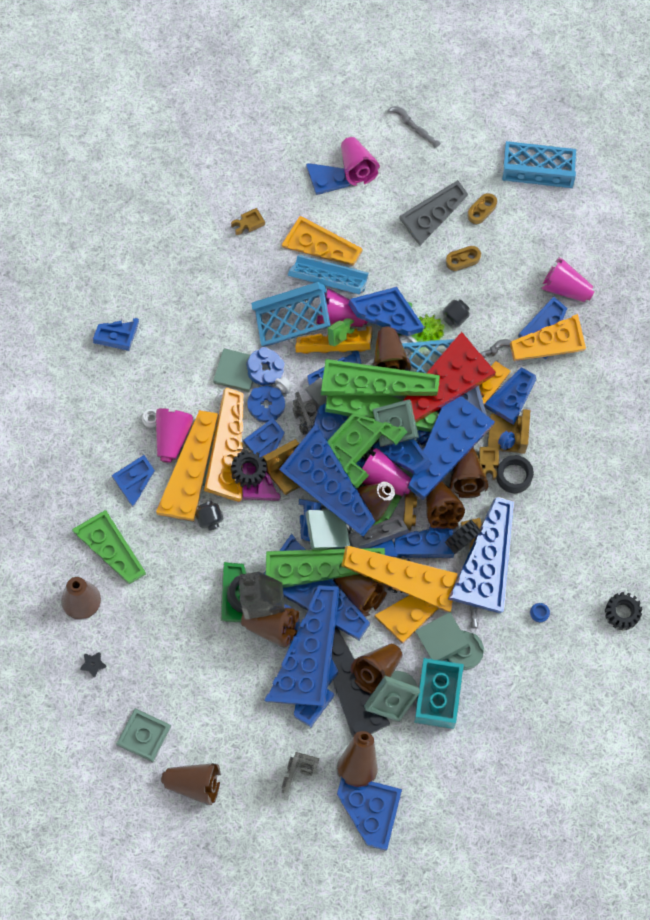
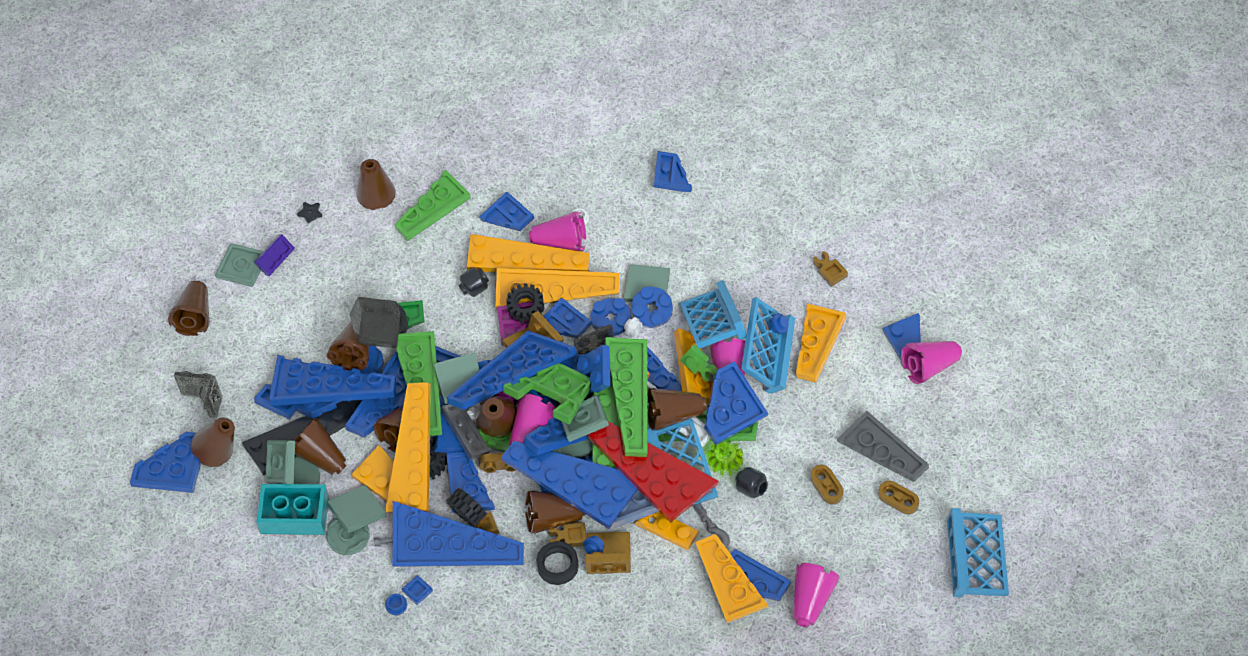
camera: 90 degrees right, 10 degrees down
(141, 700) = (274, 255): none -> dark purple plate
(309, 263) = (779, 323): none -> blue plate
(346, 401) = (597, 367): none -> blue plate
(407, 119) = (1005, 407): flat silver piece -> none
(443, 508) = (504, 488): reddish brown cone -> none
(512, 395) = (653, 549): blue wing -> none
(526, 594) = (417, 590): none -> blue tile

